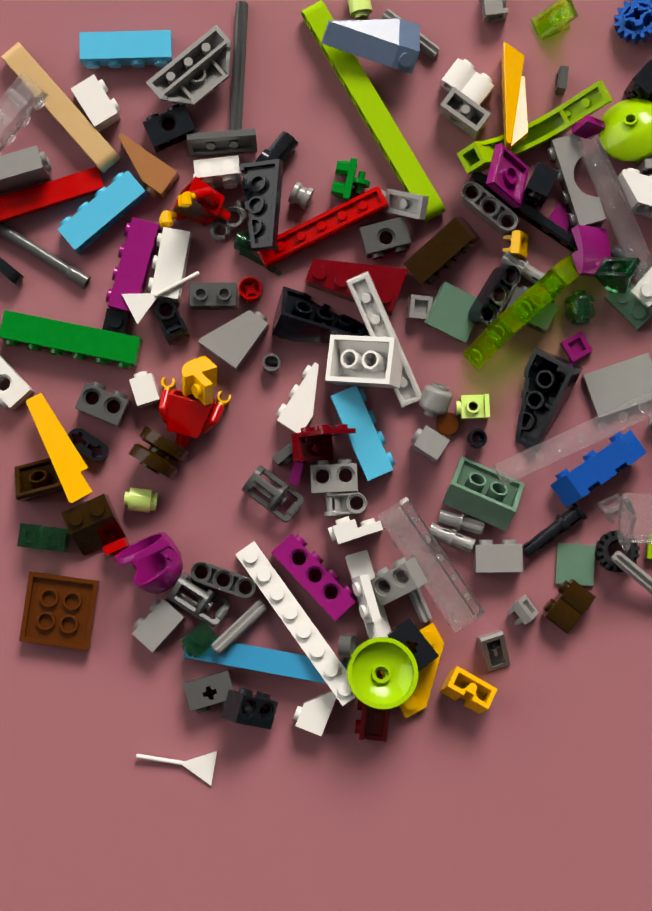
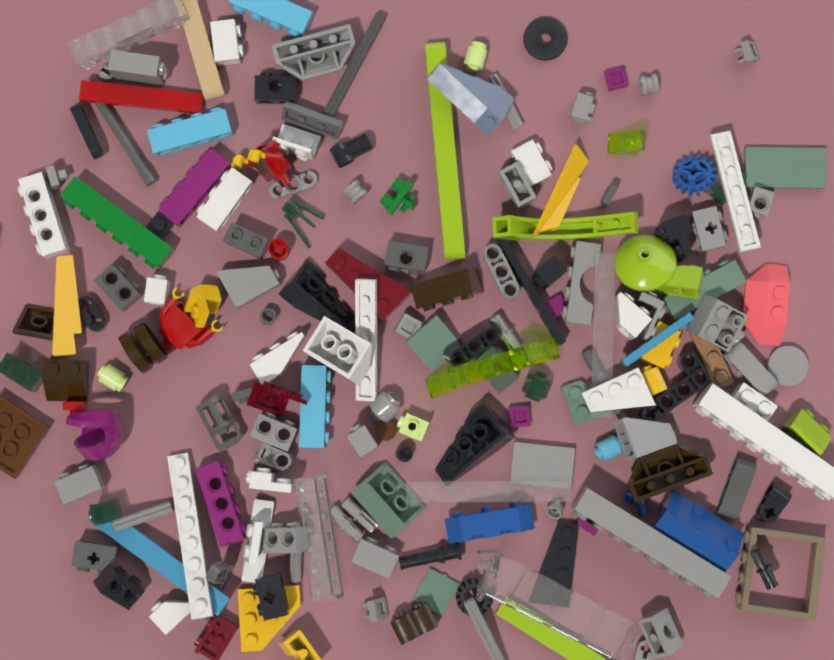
camera: 25 degrees right, 0 degrees up
(141, 302) = (185, 220): white piece -> none
(153, 172) = (243, 116): medium nougat slope -> none
(172, 322) = (203, 247): black piece -> none
(201, 766) = (60, 612): white piece -> none
(204, 603) = (116, 485): dark grey piece -> none
(212, 579) = (138, 469): dark grey beam -> none
(263, 195) = (323, 178): black wing -> none
(296, 472) = (245, 414): magenta tile -> none
(325, 225) = (361, 225): red tile -> none
(398, 668) = (250, 613): lime dish -> none
(406, 203) = (431, 235): light grey plate -> none
(494, 650) = (337, 630): light grey slope -> none
(507, 175) = (525, 254): magenta tile -> none
(519, 243) = (511, 312): yellow tile -> none
(588, 127) = (610, 244): magenta tile -> none
(592, 248) = (567, 346): magenta slope -> none
(617, 273) = (577, 373): clear green slope -> none

